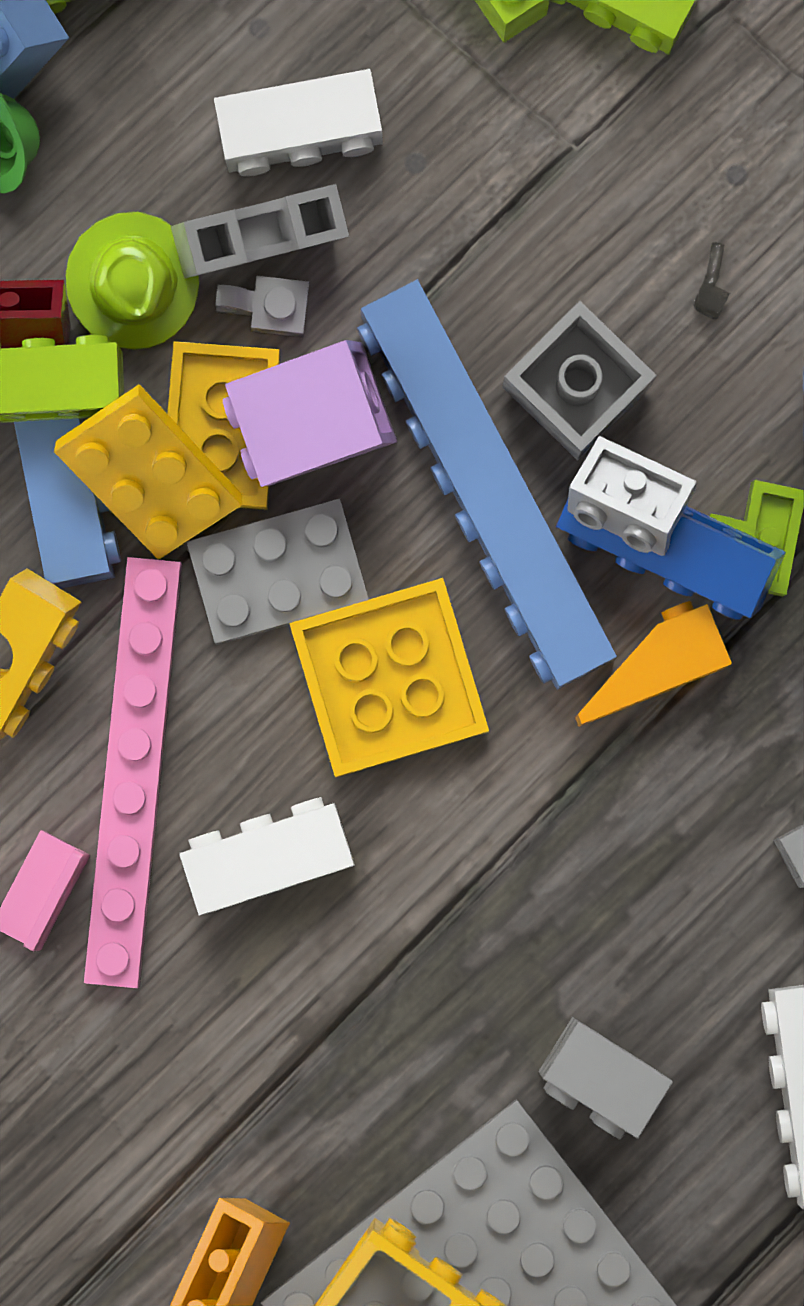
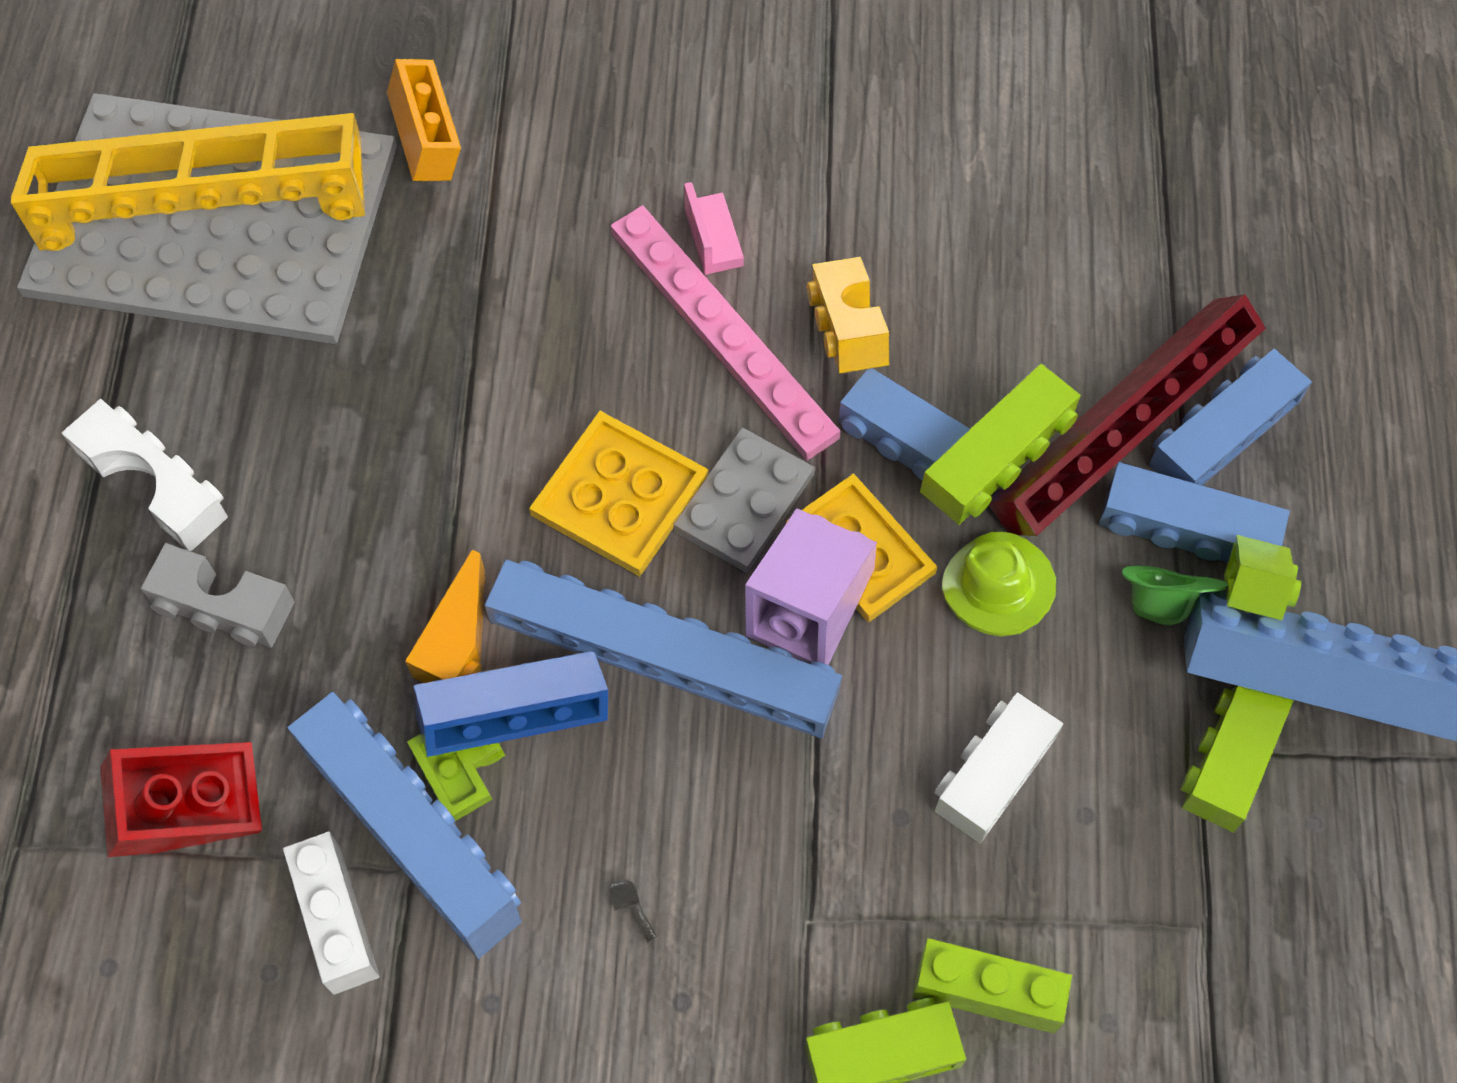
camera: 135 degrees right, 20 degrees down
(148, 472) = (872, 465): yellow plate -> none
(259, 231) = (966, 643): light grey arch -> none
(266, 856) = (598, 341): white brick -> none
(275, 305) = (902, 647): light grey plate -> none
(578, 380) = (661, 754): light grey brick -> none
(604, 1078) = (286, 373): light grey brick -> none
(629, 496) = (558, 689): bracket -> none

